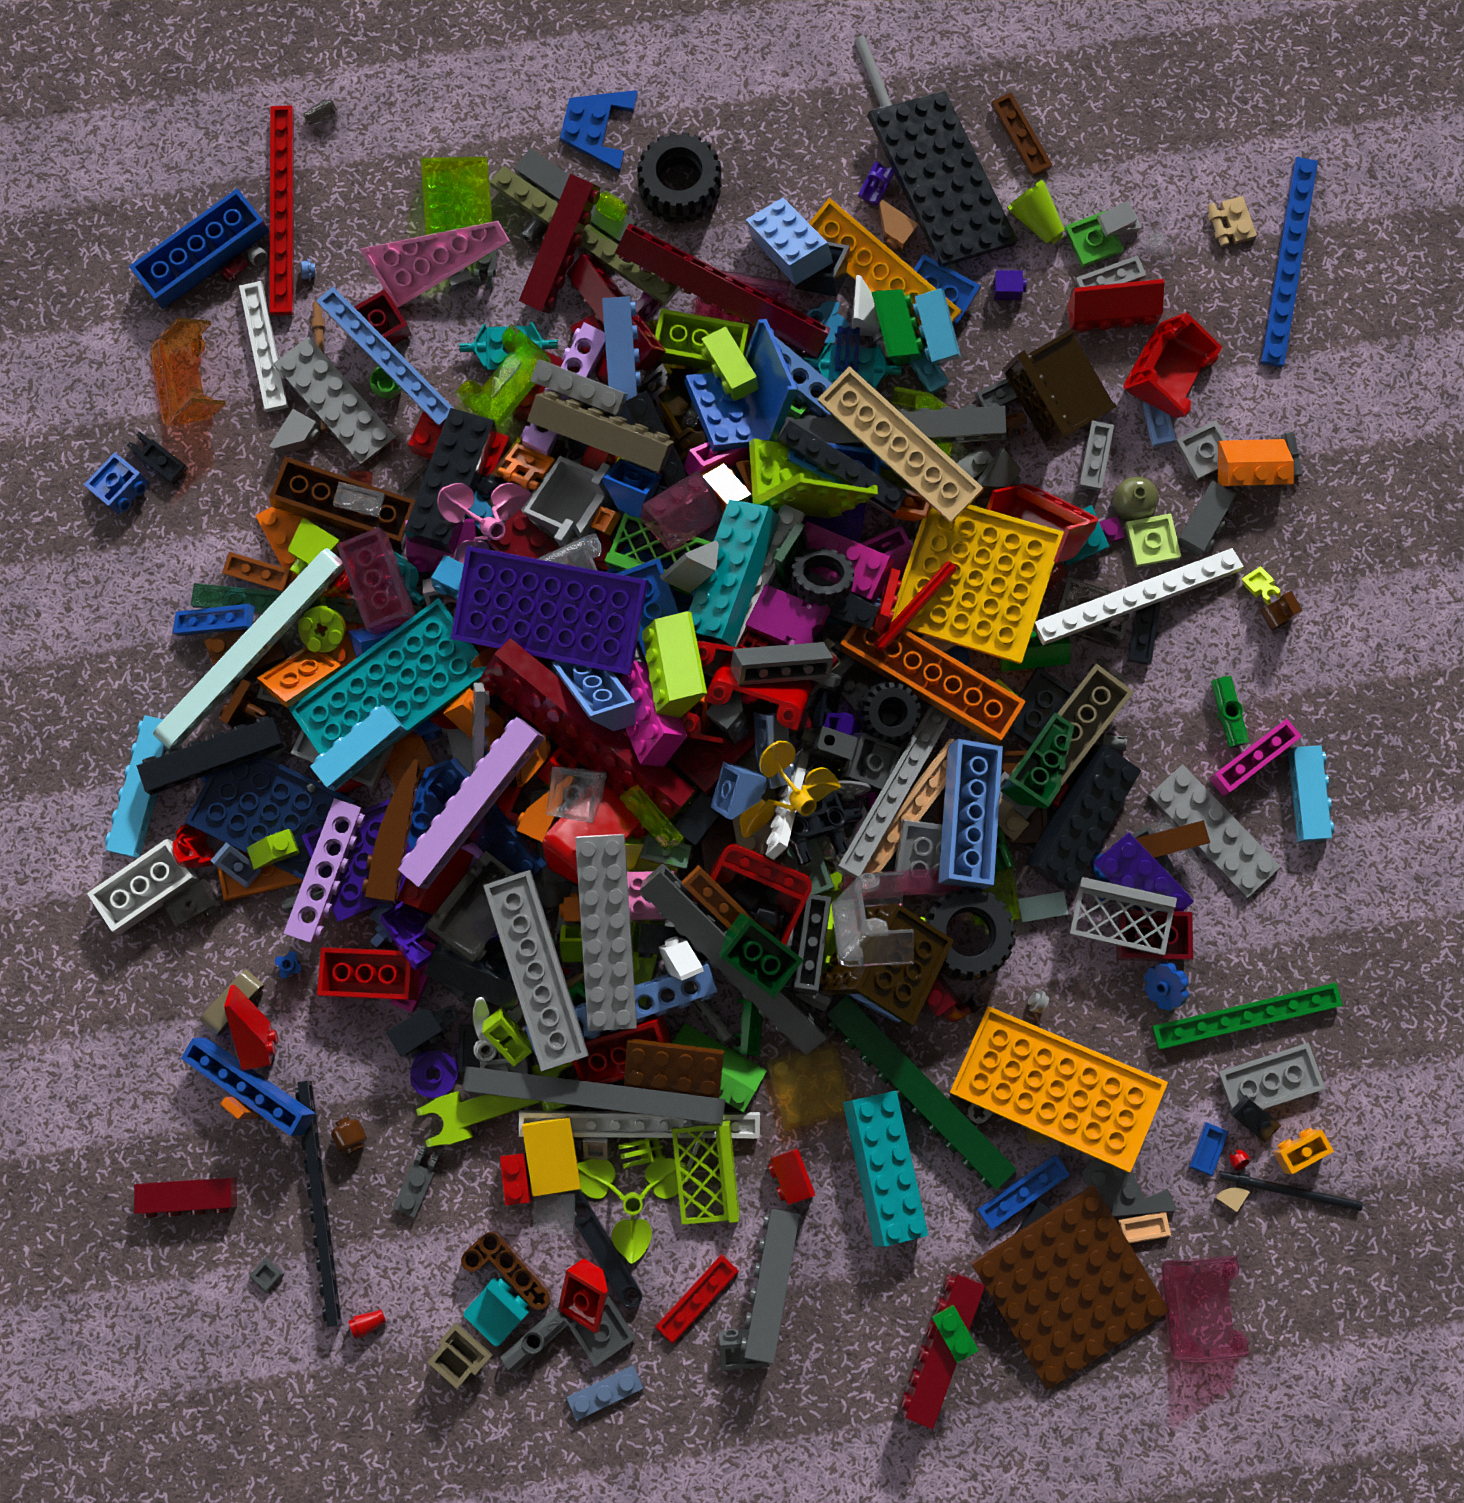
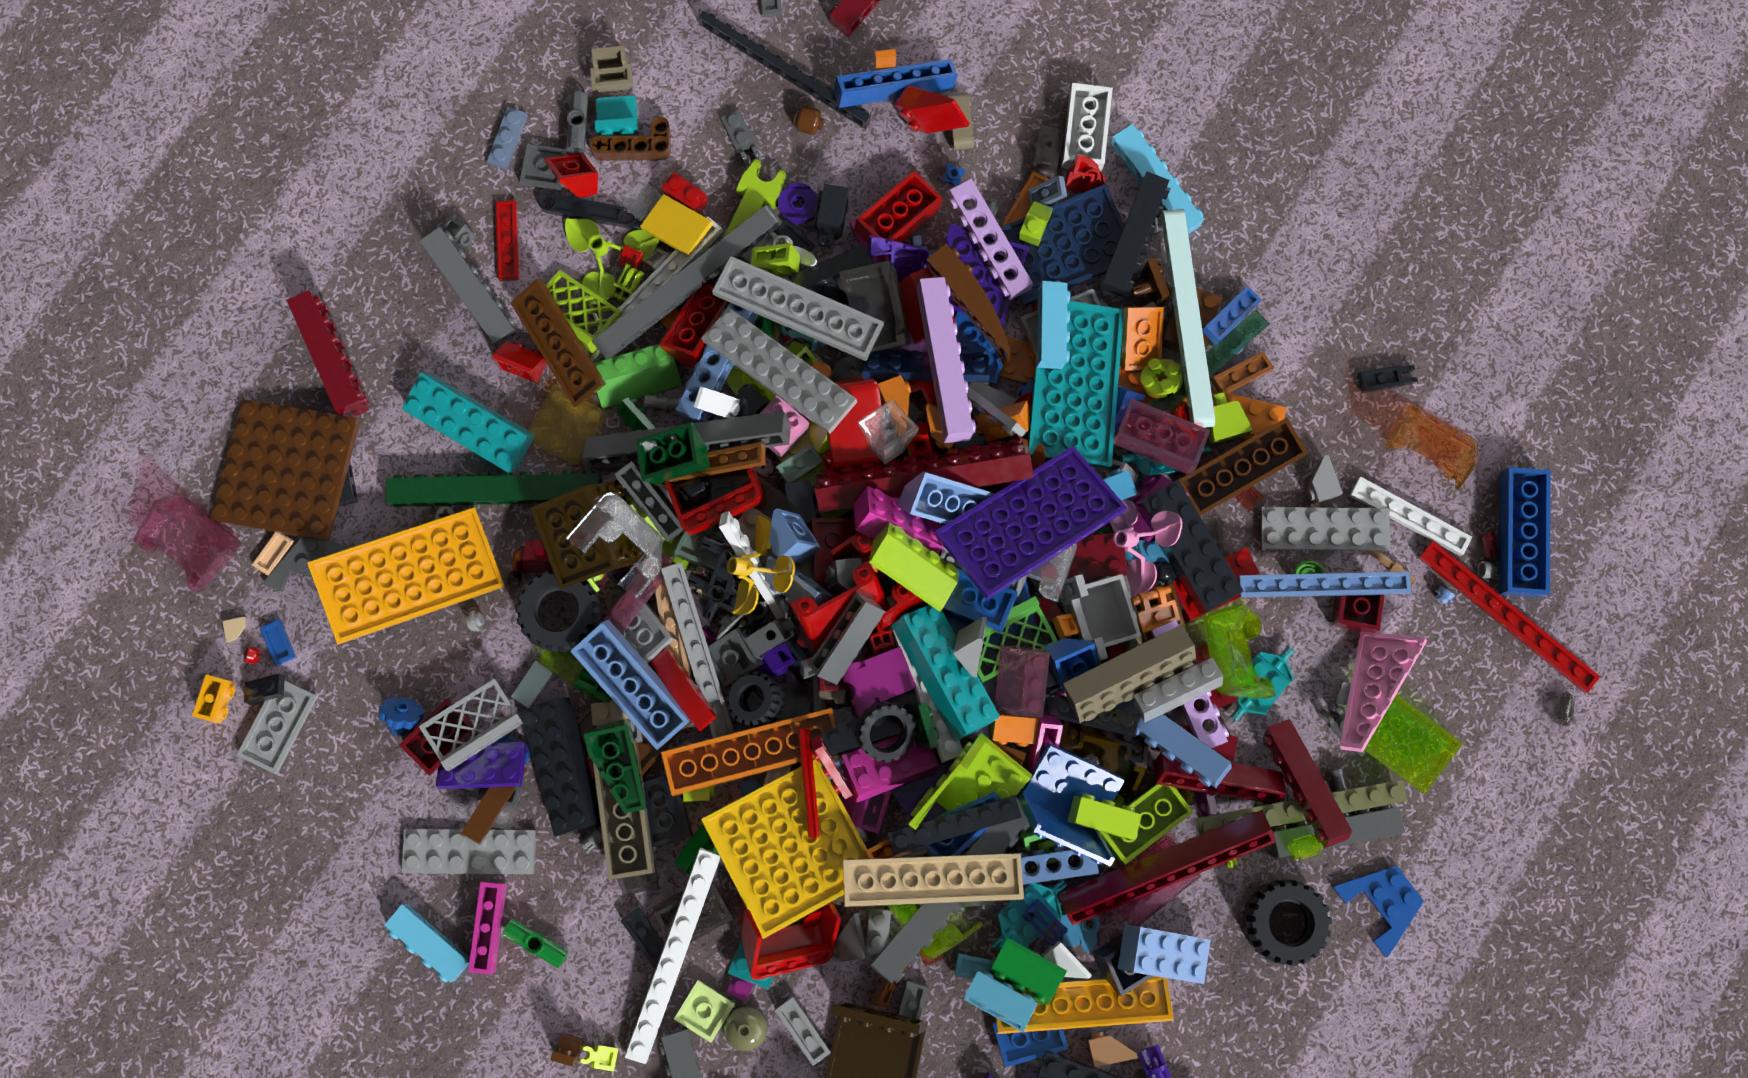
camera: 125 degrees right, 0 degrees up
(117, 483) = (1390, 335): blue plate -> none
(359, 499) = (1231, 475): clear plate -> none
(364, 1324) = (685, 35): red cone -> none
(614, 1172) = (631, 256): none -> red tile
(651, 817) = (828, 468): clear neon green plate -> none
(673, 1068) = (655, 342): reddish brown plate -> none
(749, 1155) = (557, 343): none -> reddish brown plate
(936, 772) = (683, 689): none -> red slope
(955, 1333) = (325, 364): green plate -> none
(1023, 1192) = (370, 497): blue plate -> none
(1244, 1181) = (235, 646): black bar -> none
(1246, 1016) = (331, 751): green plate -> none

